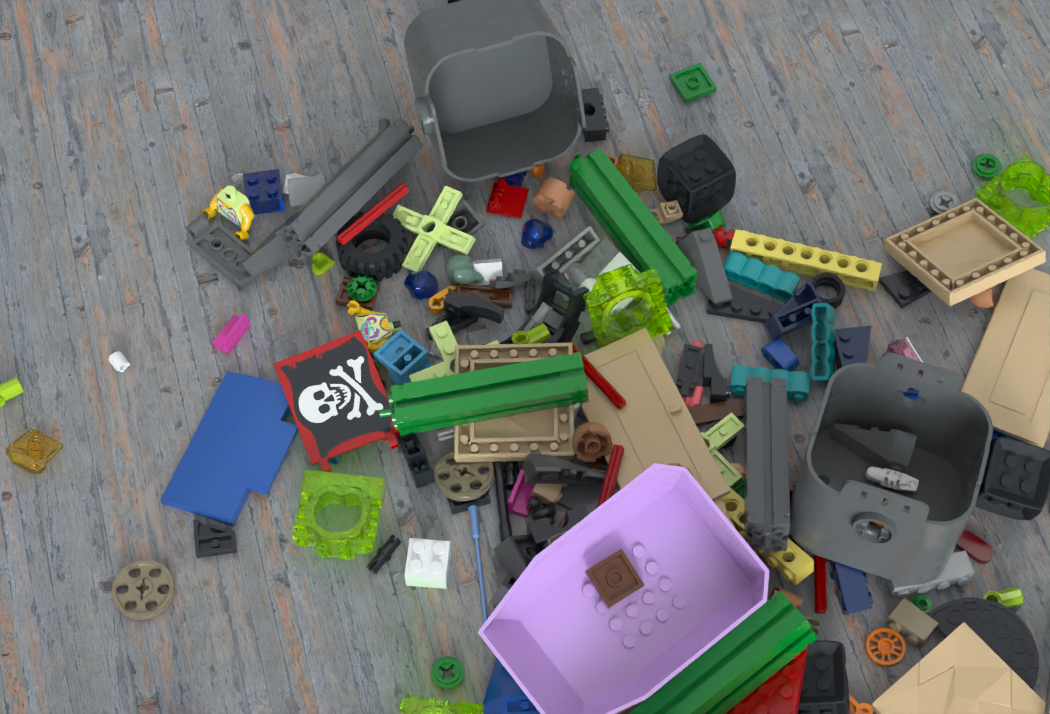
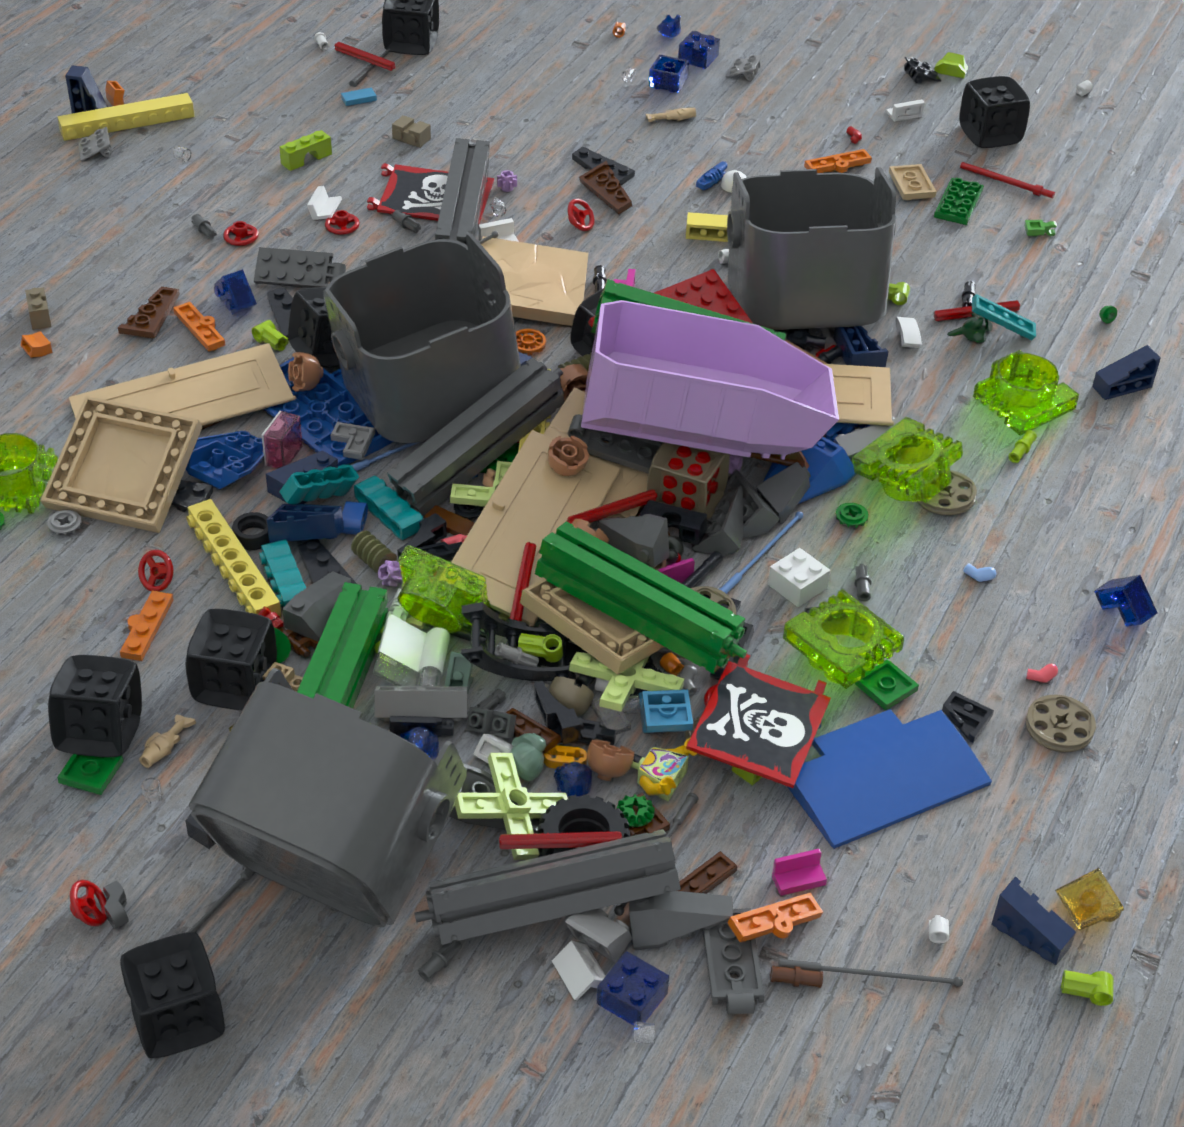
camera: 140 degrees left, 15 degrees down
(60, 402) = (1031, 924): none -> dark blue wedge
(175, 287) = (815, 966): none -> dark grey piece
(181, 270) = (796, 976): none -> reddish brown pin
(183, 626) = (1044, 675): none -> coral arm
(218, 287) = (775, 918): none -> orange hinge
(234, 207) = (686, 990): torso -> none
(281, 520) = (887, 685): none -> green plate
(287, 289) = (708, 874): none -> reddish brown tile
(299, 692) = (981, 574): none -> light blue arm
(335, 312) = (678, 820): none -> dark grey piece
(381, 605) = (863, 582): none -> dark grey axle
(417, 303) = (609, 760): none -> nougat cylinder
(481, 330) = (571, 695): none -> dark tan cylinder
(548, 245) = (436, 725): none -> black hinge
(583, 37) = (115, 904): none -> dark grey piece
(598, 21) = (86, 904): none -> red piece
(677, 123) = (161, 744): none -> tan animal
(697, 330) = (390, 573): none -> lavender gear
(724, 90) = (95, 705): none -> black piece
(729, 336) = (371, 550): none -> olive piece
(793, 183) = (145, 625): none -> orange hinge
(835, 214) = (159, 570): none -> red piece
(929, 327) = (225, 458): none -> blue wedge

